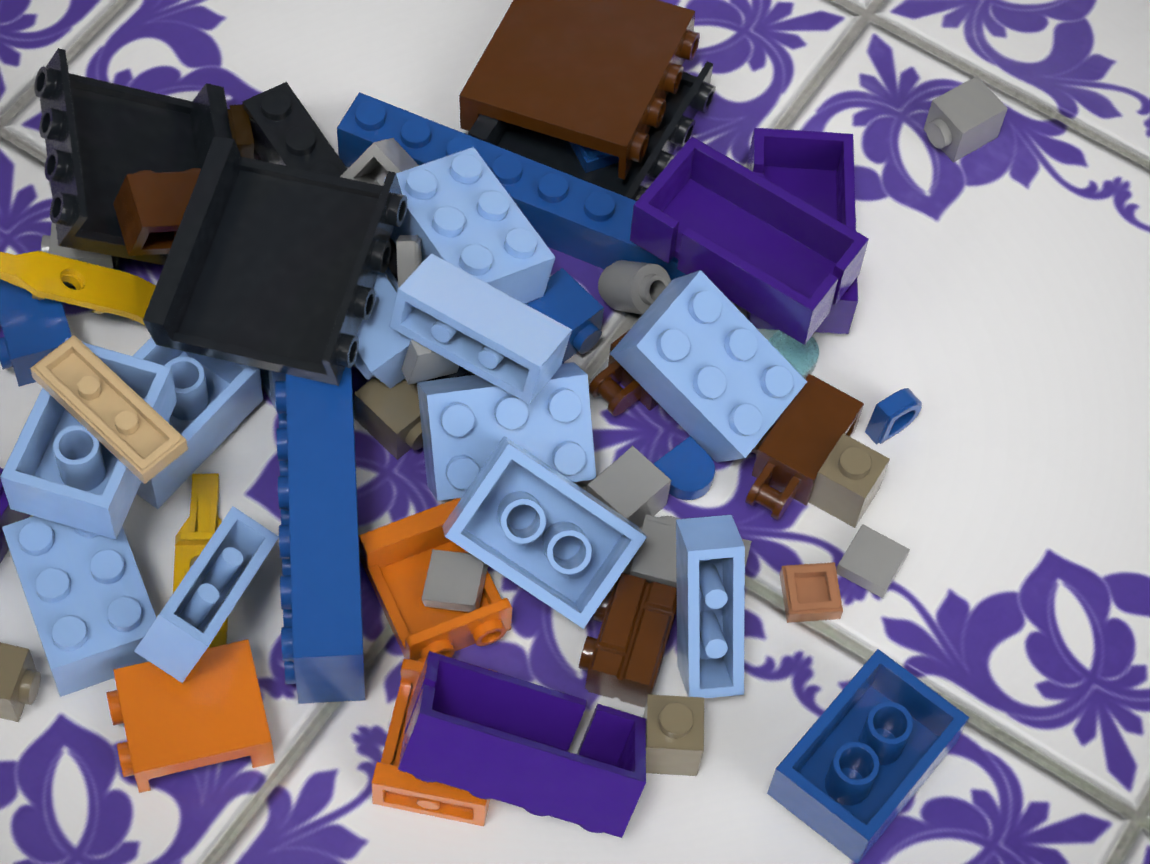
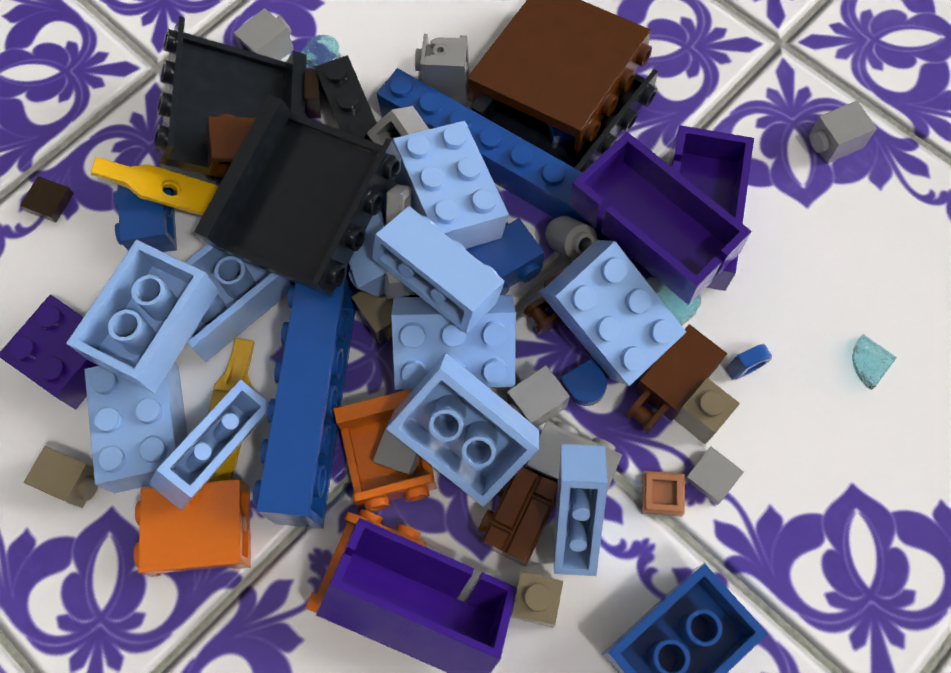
camera: 20 degrees right, 10 degrees up
(109, 409) = (151, 301): tan tile -> none
(156, 67) = (265, 36): none -> light grey brick
(240, 81) = (321, 50): none -> clear light blue tile
(425, 82) = (445, 66): none -> light grey hinge
(1047, 398) = (870, 361): none -> clear light blue tile

